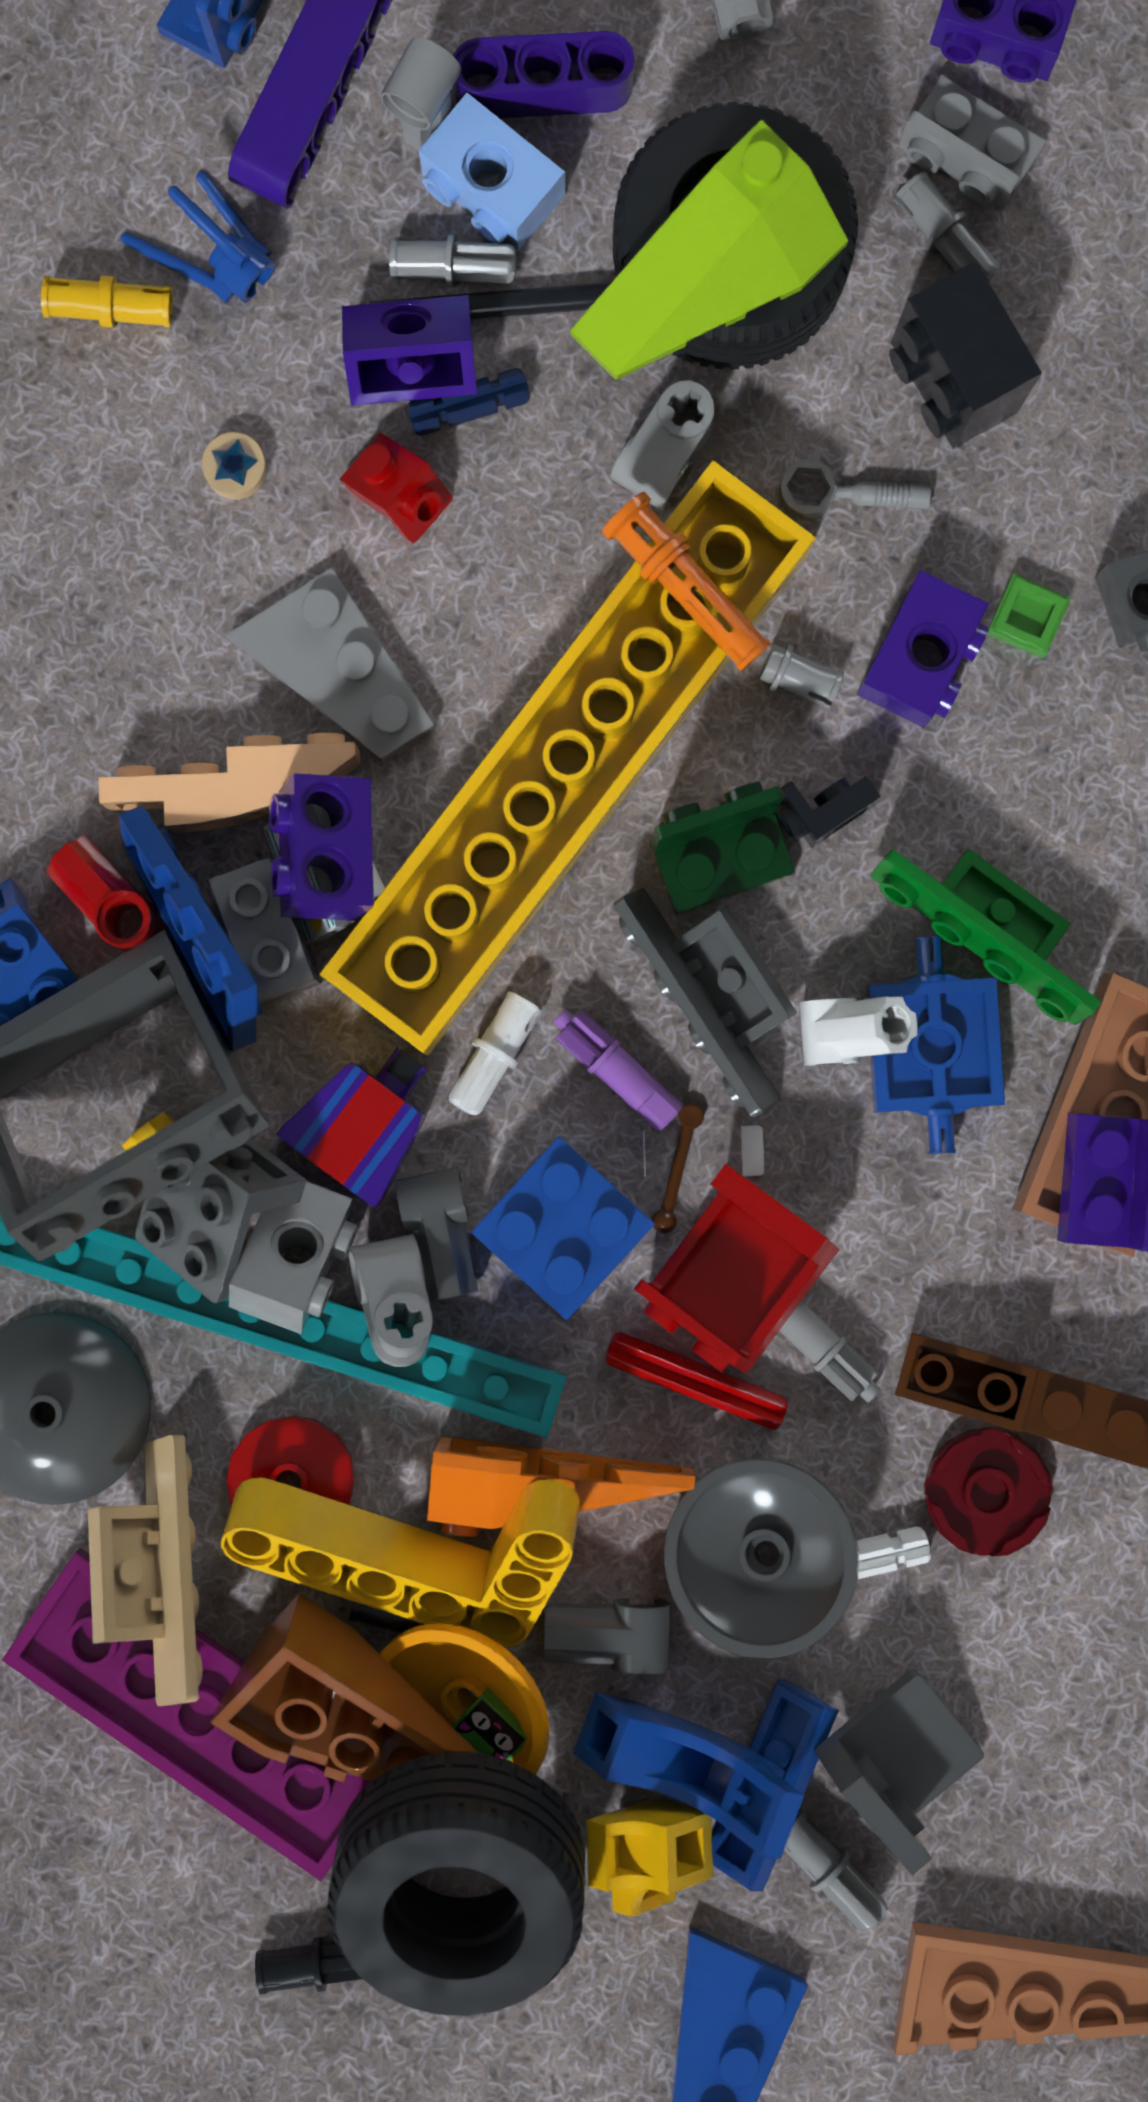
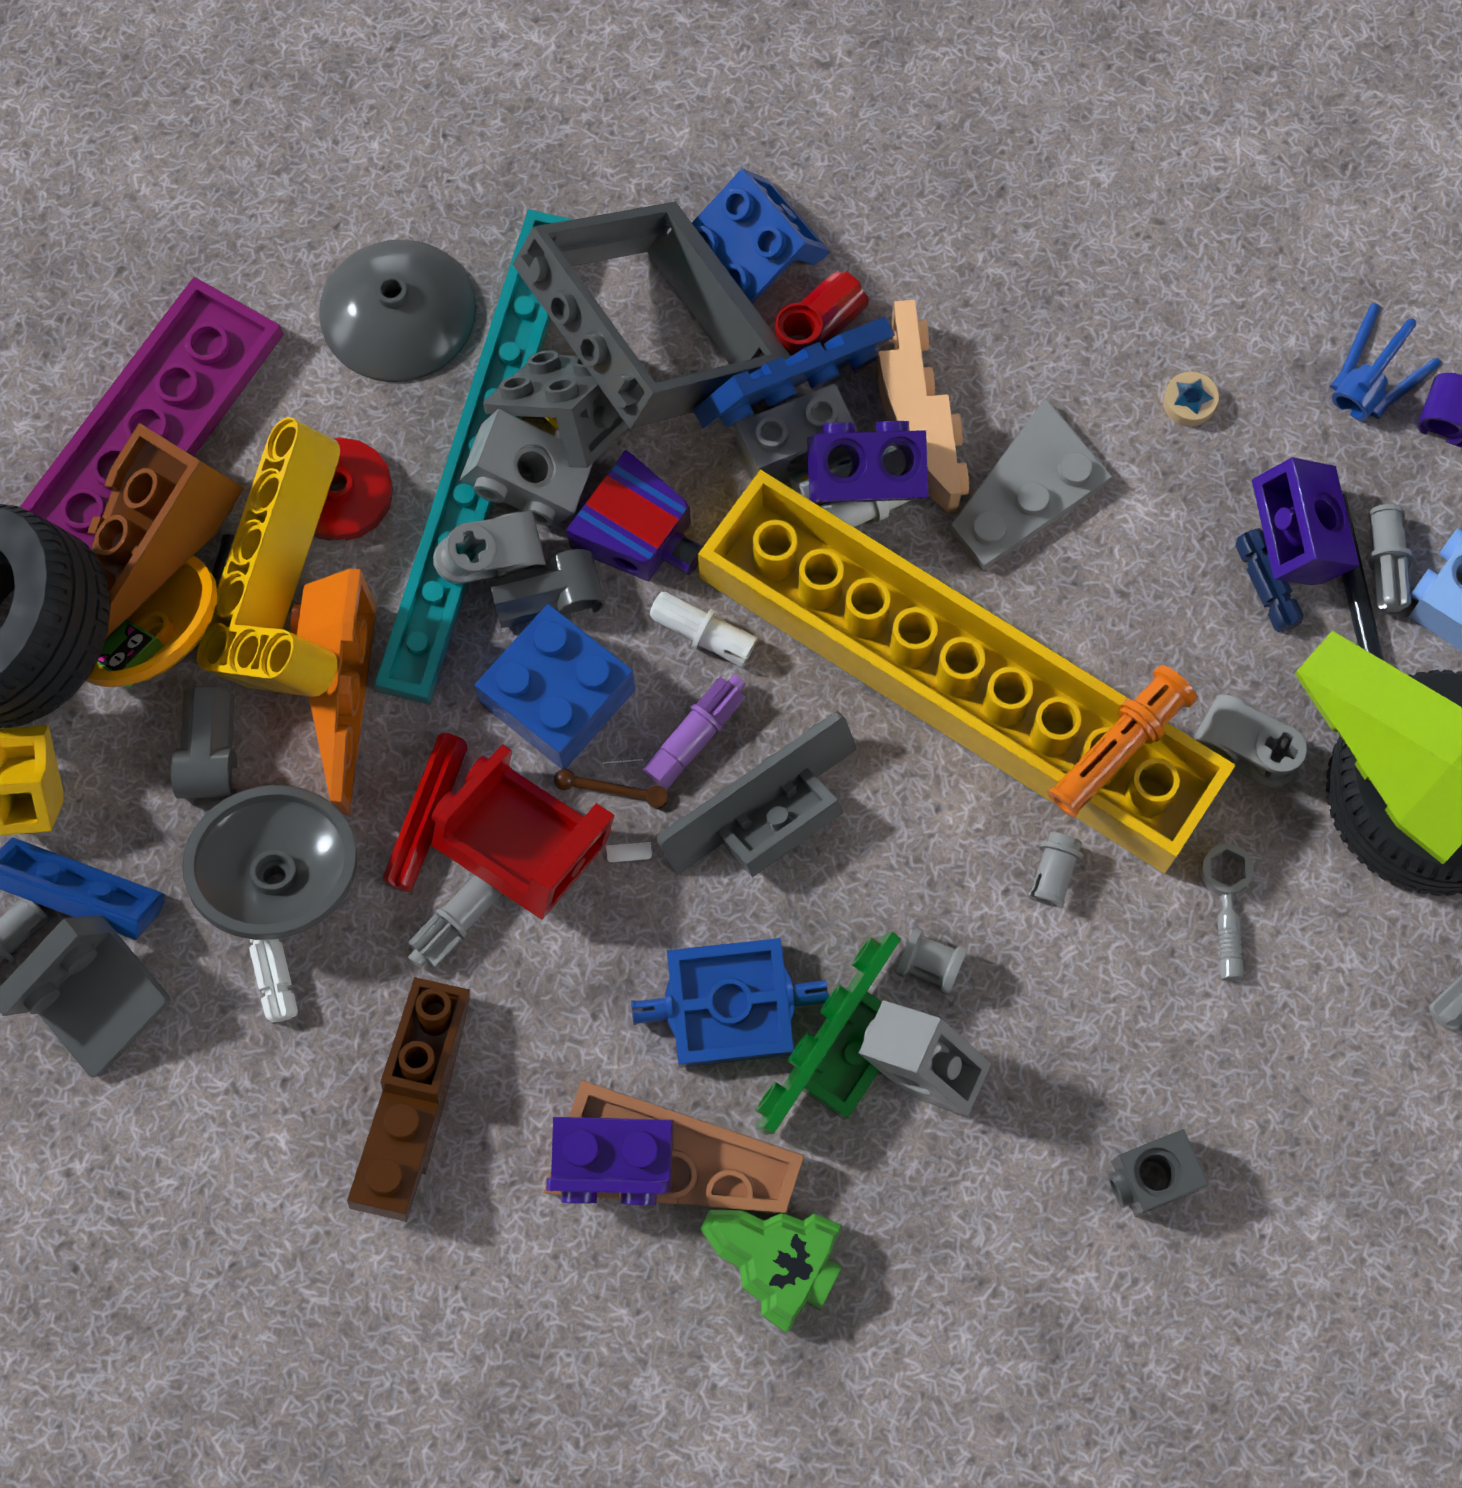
camera: 90 degrees right, 15 degrees down
(107, 301) = (1317, 292): yellow pin -> none
(145, 1572) = (263, 368): tan bracket -> none
(397, 486) = (1186, 526): red bracket -> none
(692, 1764) = (96, 811): blue arch -> none
(722, 848) = (895, 804): dark green bracket -> none
(837, 808) = (937, 904): black bracket -> none
(851, 1029) = (738, 920): white piece -> none
(899, 819) = (931, 960): none -> light grey bush
(934, 614) = (1121, 968): dark purple brick -> none
(962, 356) = (1366, 980): black brick -> none
(973, 1476) = (341, 1088): dark red tile -> none
(1023, 835) = (925, 1057): none -> light grey brick
(1028, 615) = (1131, 1073): bright green tile -> none

